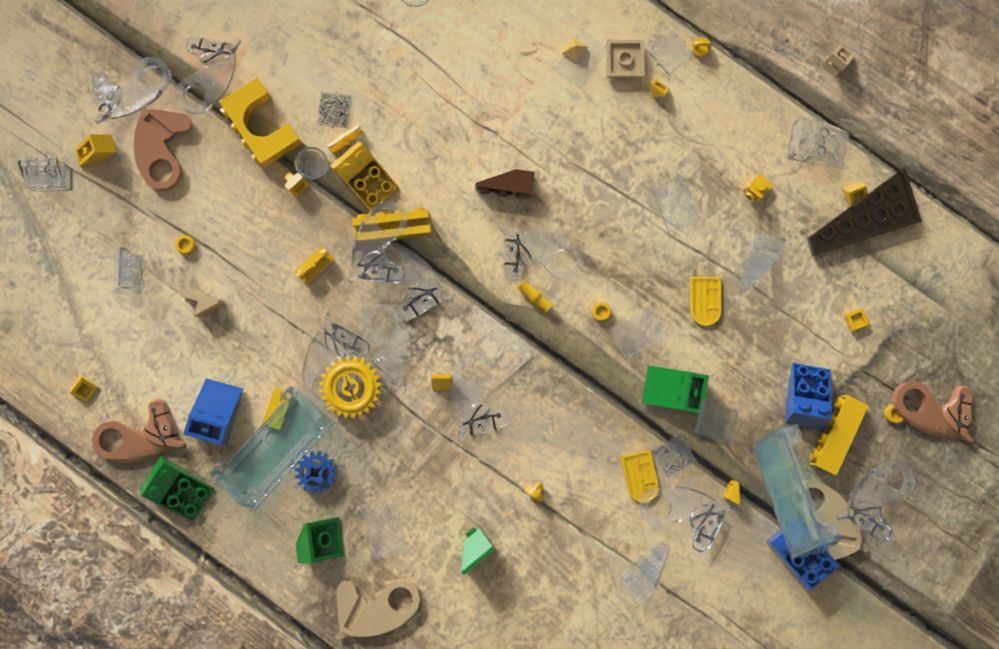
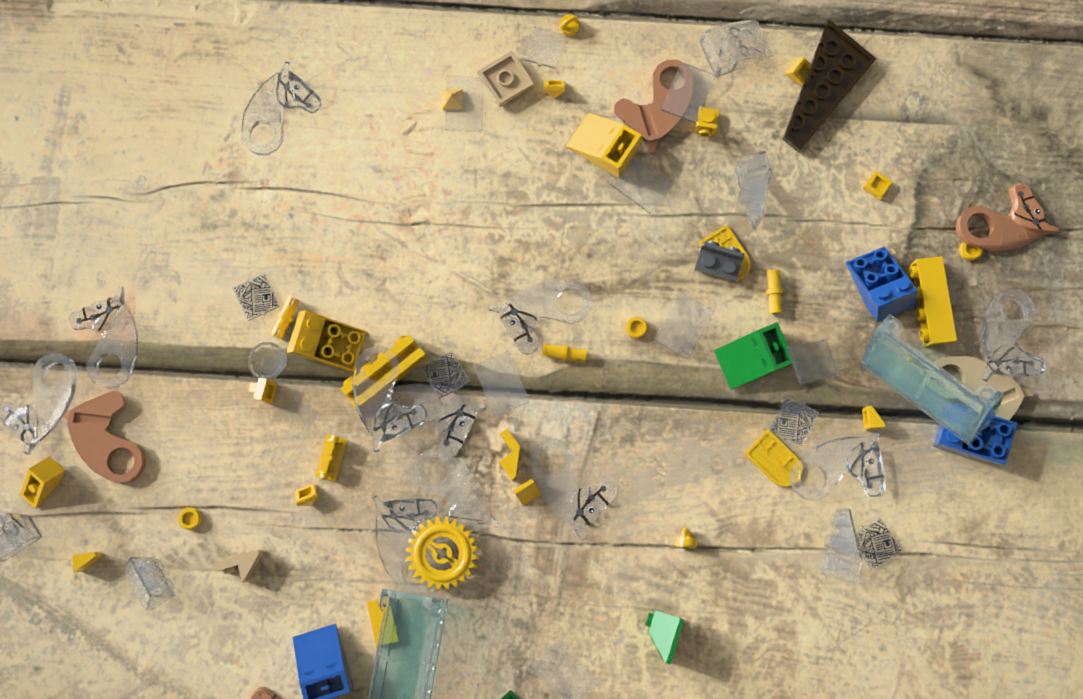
camera: 25 degrees left, 5 degrees down
(90, 227) = (85, 560): none -> yellow slope
(239, 107) = (212, 375): yellow arch -> none
(279, 282) = (306, 496): none -> yellow slope
(321, 479) = (470, 663): blue gear -> none
(436, 257) = (445, 375): none -> clear piece
(443, 352) = (511, 461): none -> yellow slope
(474, 289) = (501, 383): none -> clear piece
(515, 183) = (476, 257): reddish brown slope -> none
(668, 157) = (605, 143): none -> yellow slope
(675, 585) = (877, 544): none -> clear piece
(696, 301) = (719, 261): none -> dark grey bracket
(722, 162) = (649, 118): none -> nougat animal
(723, 351) = (774, 291): none -> yellow pin
(758, 157) = (688, 92): none -> clear piece

